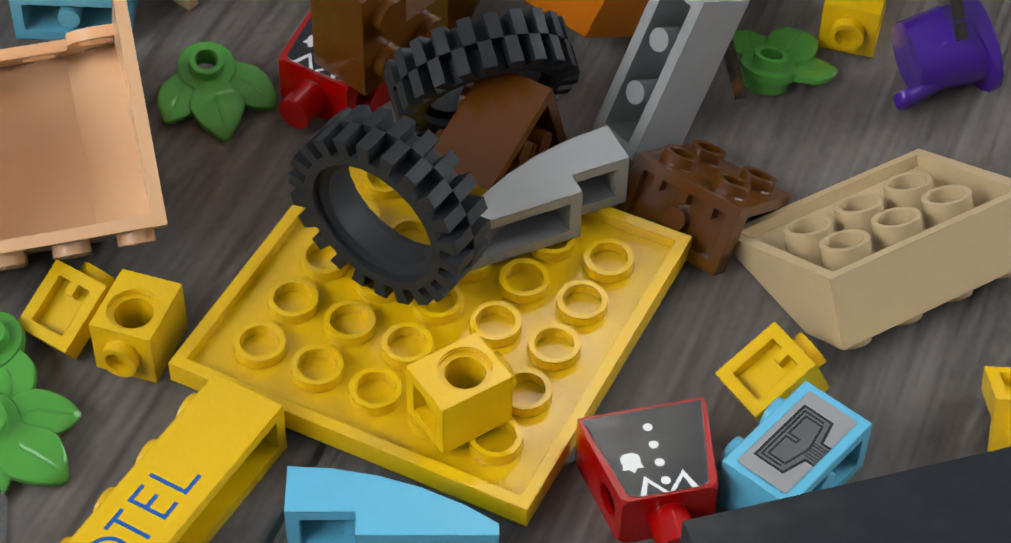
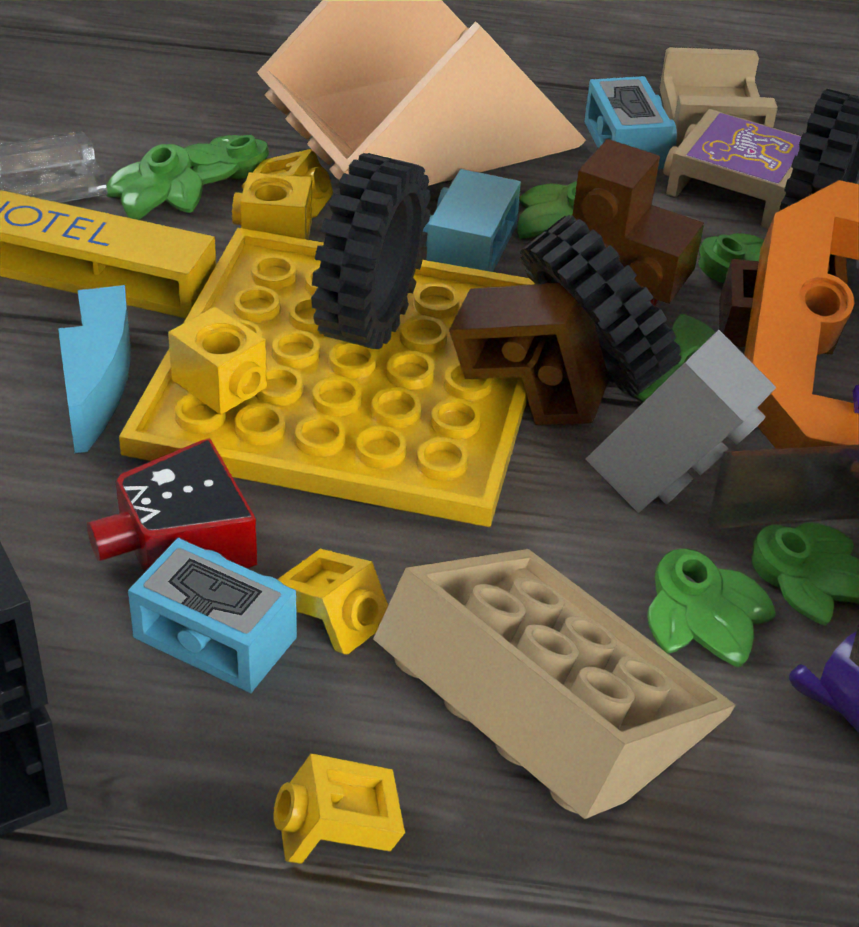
camera: 75 degrees right, 5 degrees down
(225, 161) = (473, 220): none -> medium azure brick
(551, 192) = (477, 383): light grey slope -> none
(700, 196) = (568, 515): reddish brown bracket -> none
(812, 134) = (712, 611): none -> bright green plate

